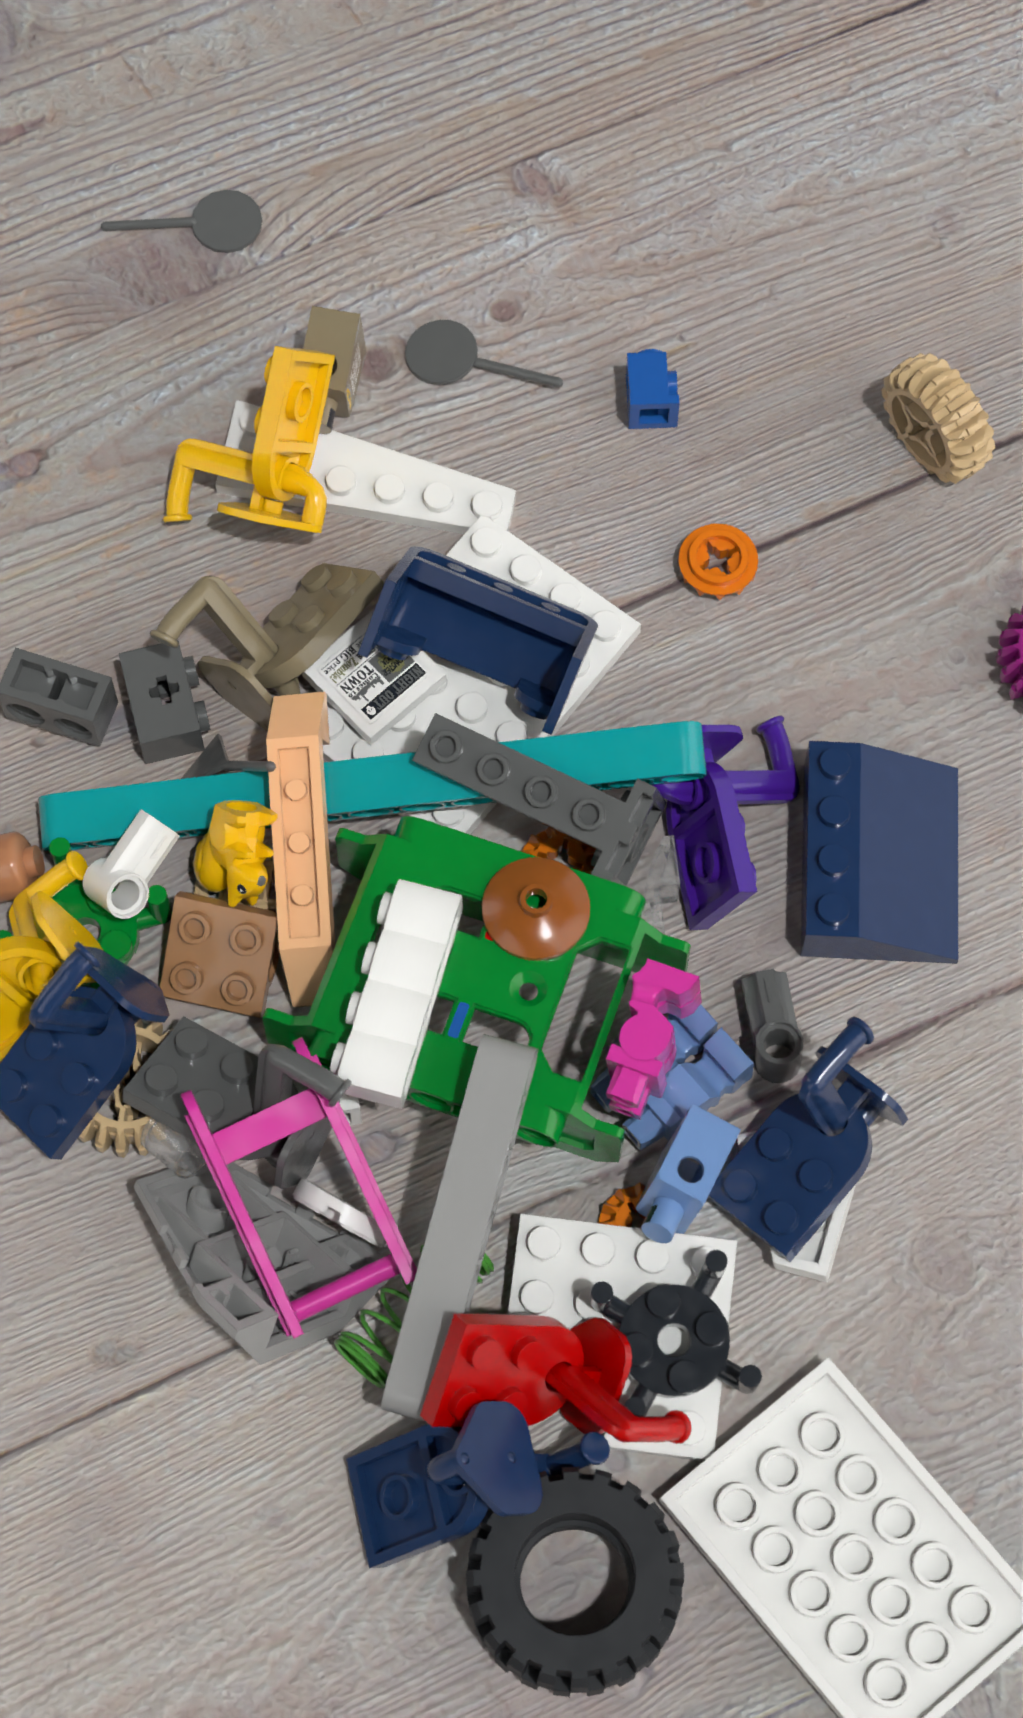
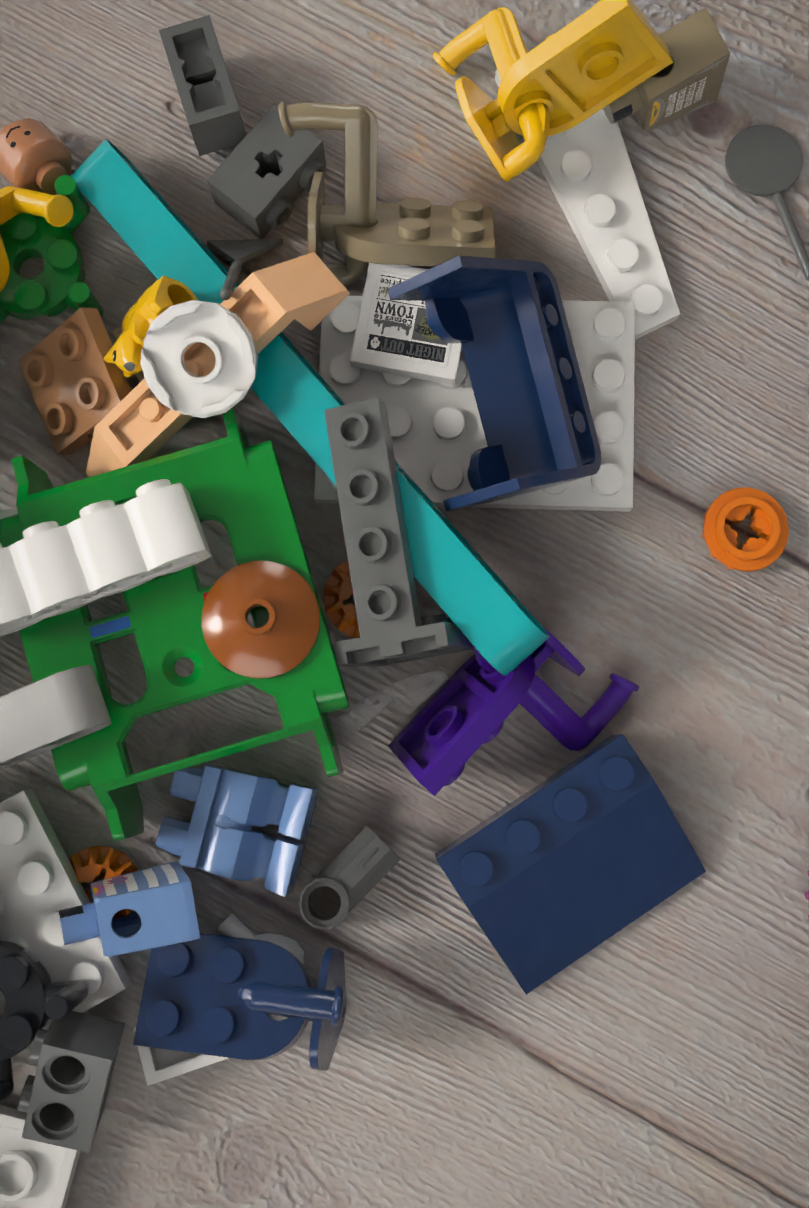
camera: 55 degrees right, 15 degrees up
(131, 864) = (82, 252): white piece -> none
(279, 837) = (165, 366): none -> white tile
(648, 1037) = (202, 806): dark pink hips -> none
(788, 1314) = (70, 1080): none -> dark grey brick

